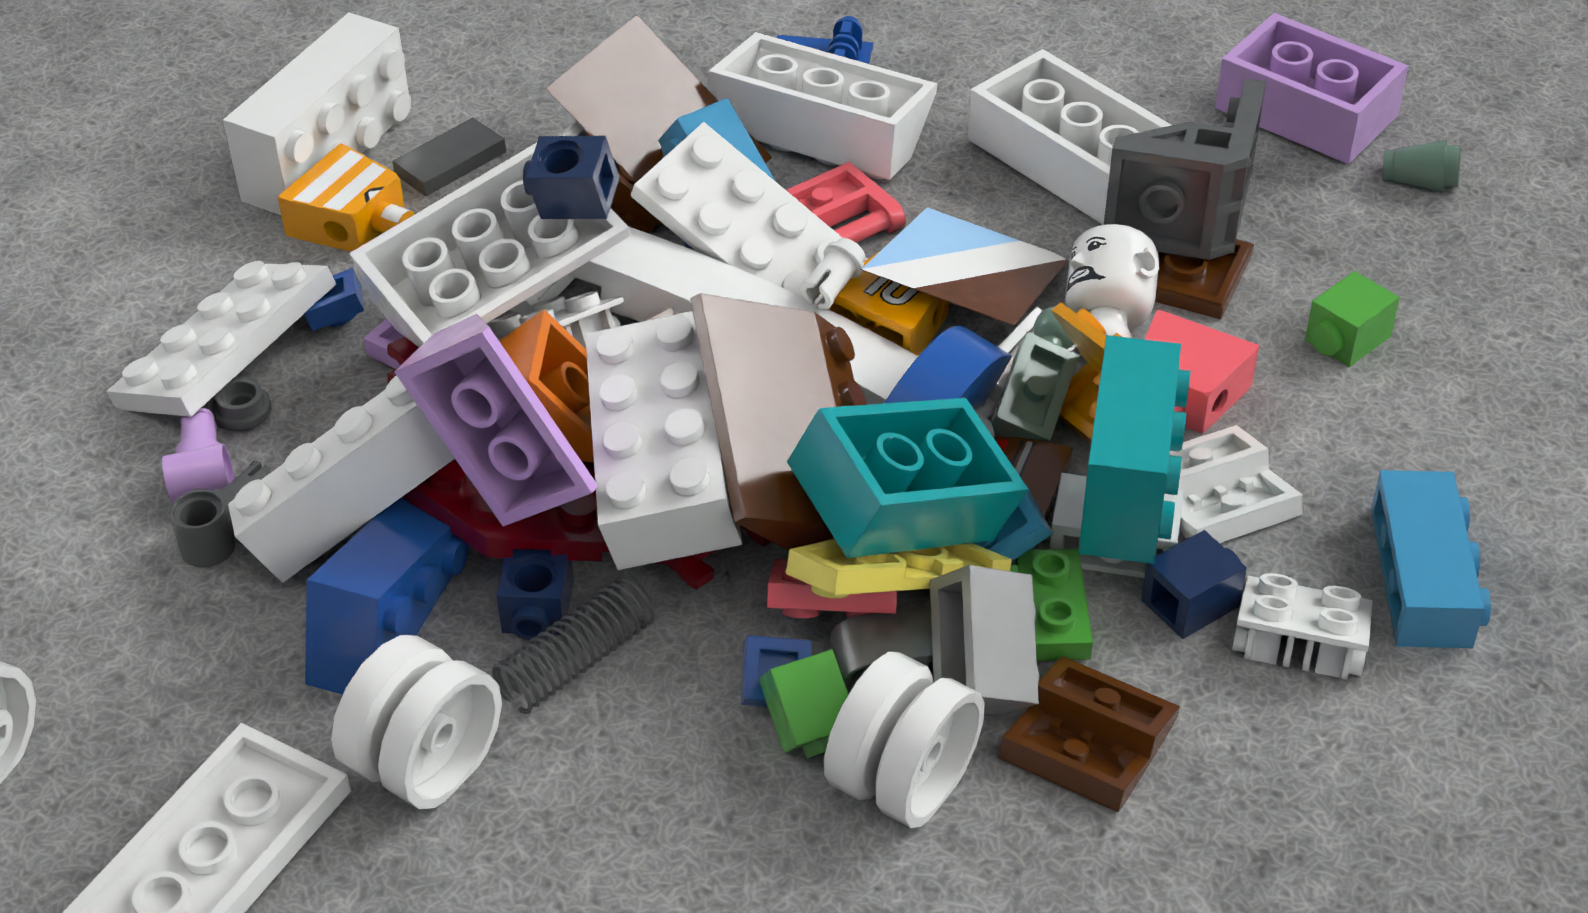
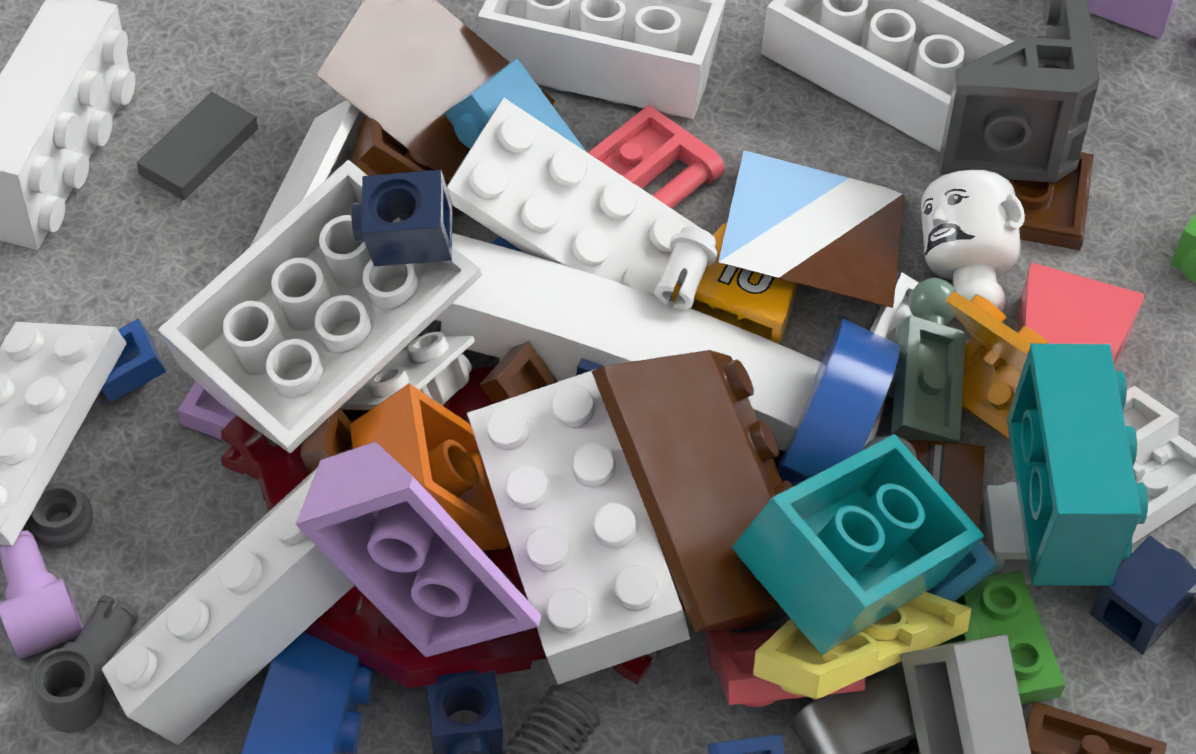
camera: 15 degrees left, 10 degrees up
(343, 201) = (104, 228): light orange torso -> none

